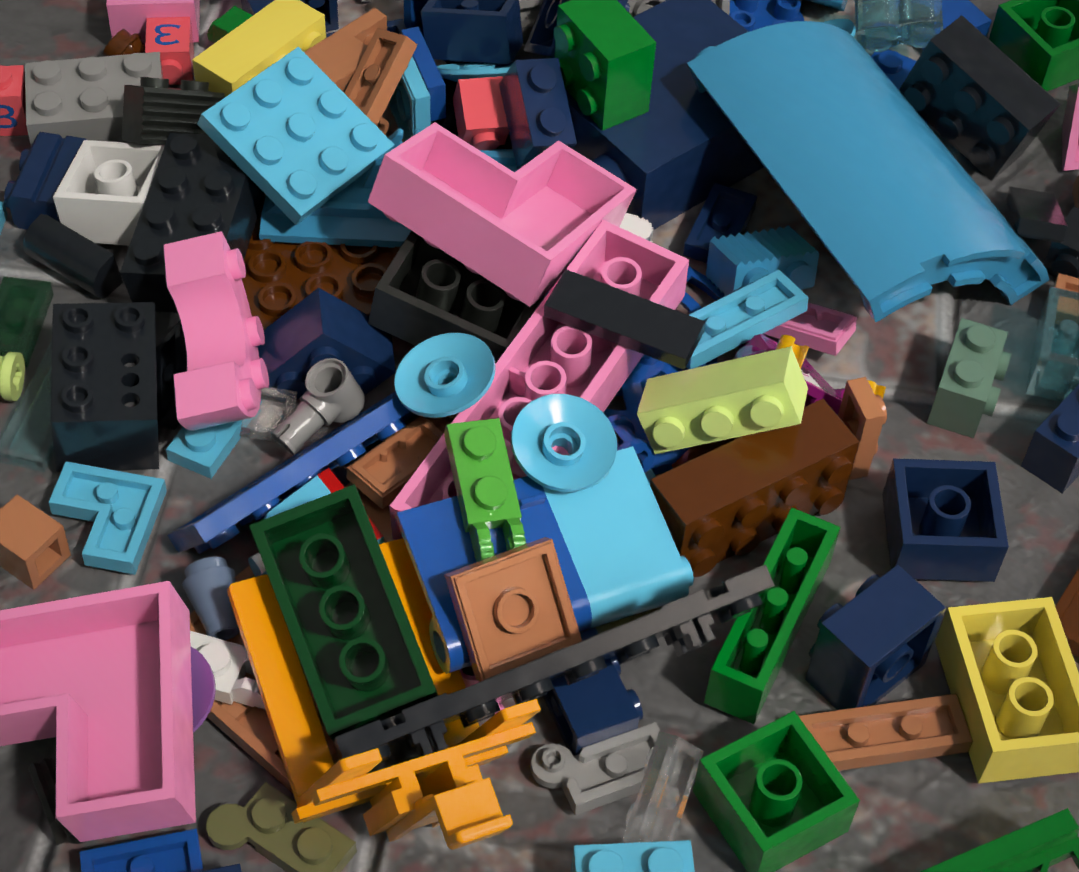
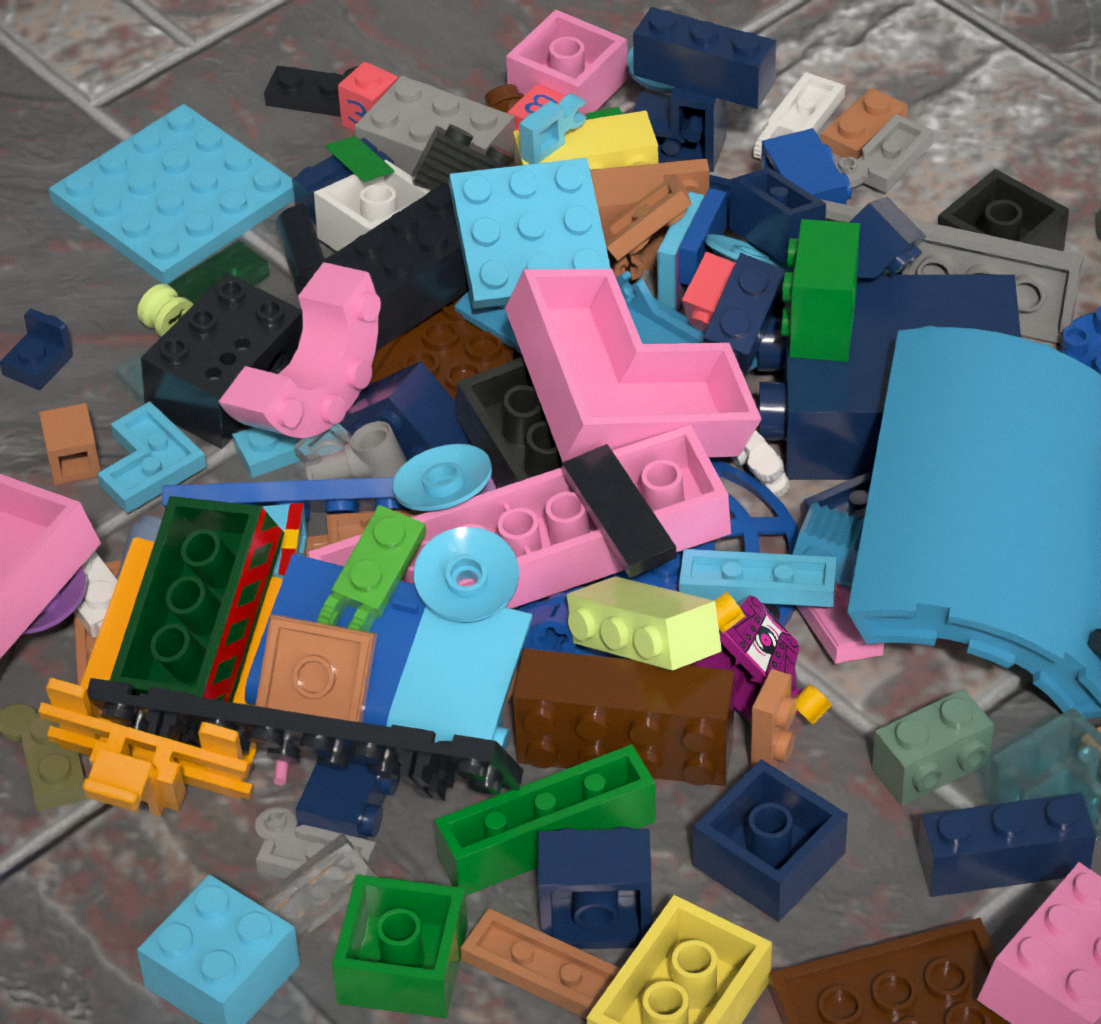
camera: 45 degrees right, 5 degrees down
(59, 150) = (359, 158): none -> green sticker
(231, 43) = (546, 128): none -> medium azure plate

